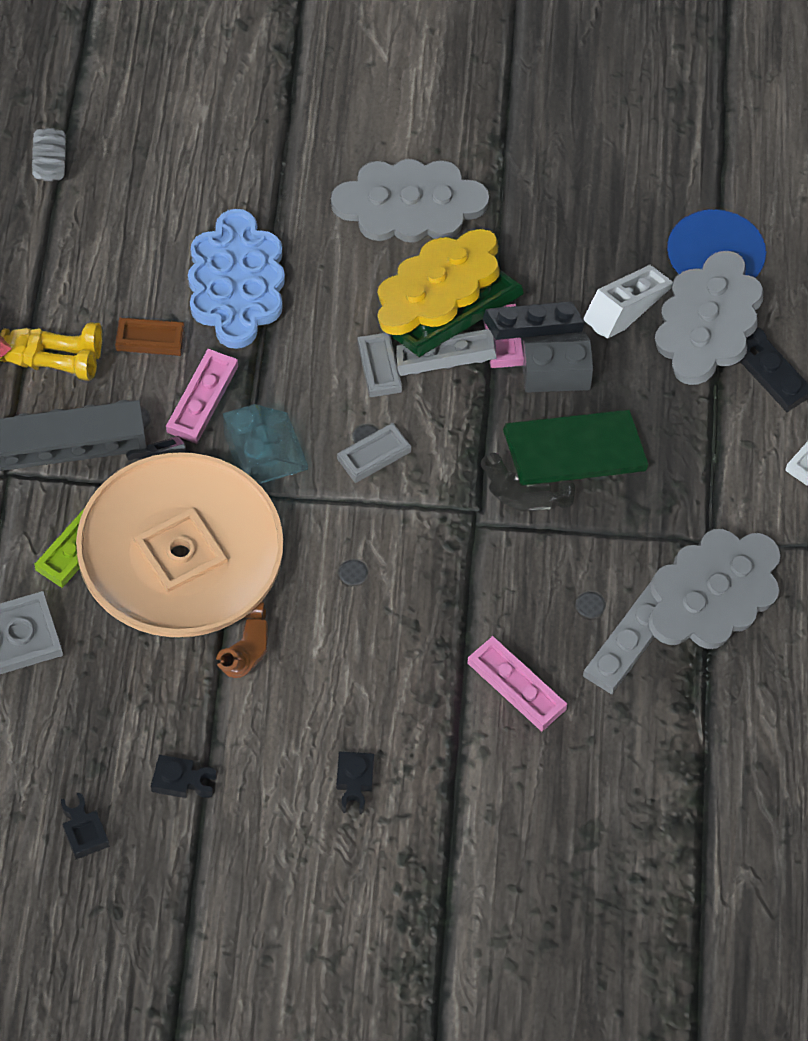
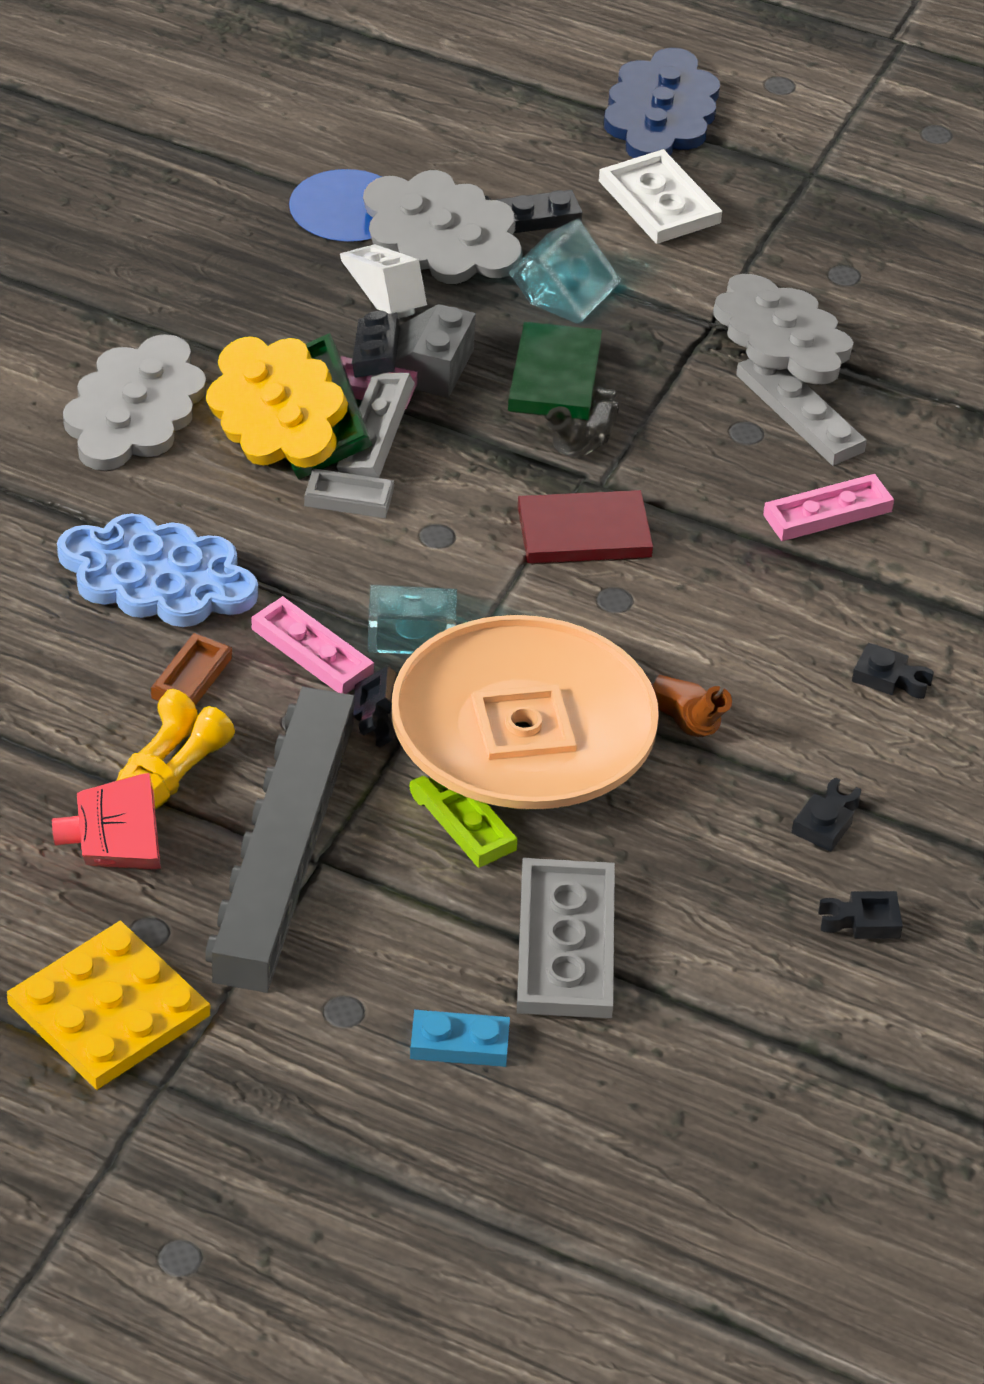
camera: 70 degrees left, 15 degrees down
(374, 452) = (467, 532): light grey tile -> none
(417, 526) = (584, 526): none -> dark red tile
(699, 419) = (566, 273): none -> clear light blue slope

